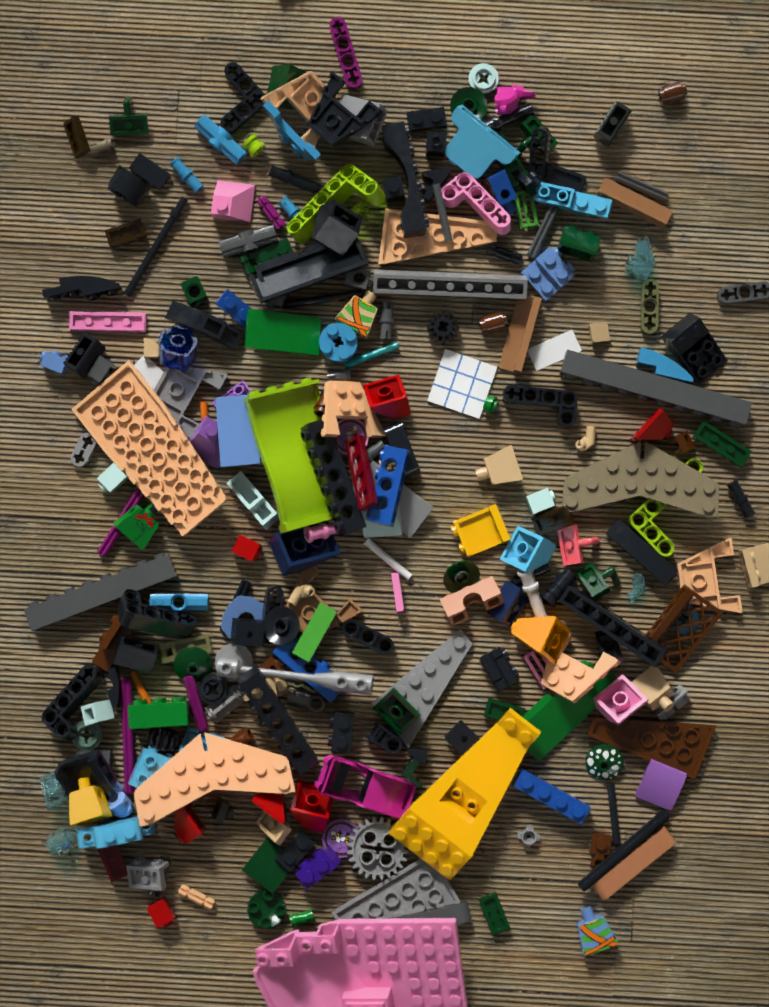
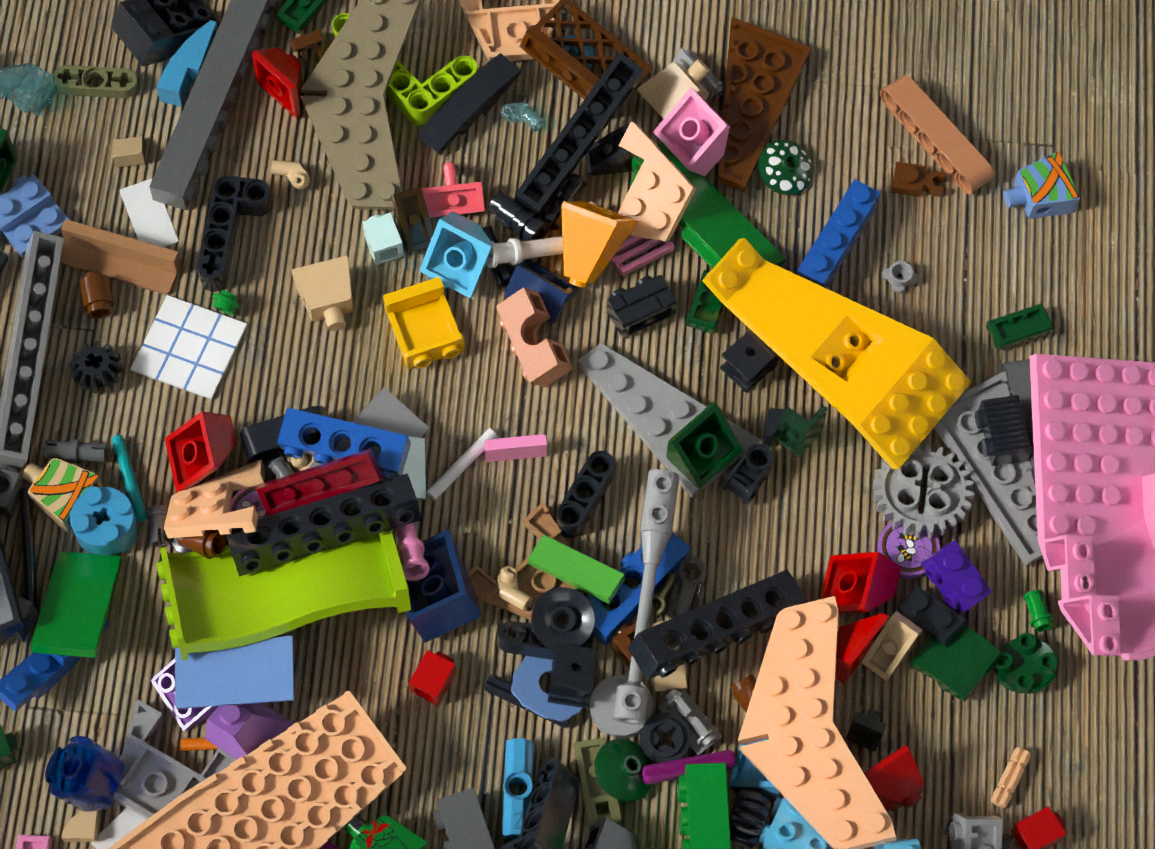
camera: 90 degrees left, 20 degrees down
(204, 324) = (47, 732): black slope -> none
(253, 500) = (353, 664): light aqua slope -> none
(342, 732) = (738, 536): black brick -> none
(380, 790) = (834, 484): dark pink piece -> none
(415, 900) = (1003, 430): none -> black brick
(469, 575) = (493, 352): dark green dish -> none
(571, 617) = (569, 193): none -> black pin
(595, 581) = (514, 161): dark green plate -> none
(613, 814) = (863, 159): black bar -> none
(623, 850) = (919, 145): black axle -> none
(661, 784) = (819, 92): medium lavender slope -> none

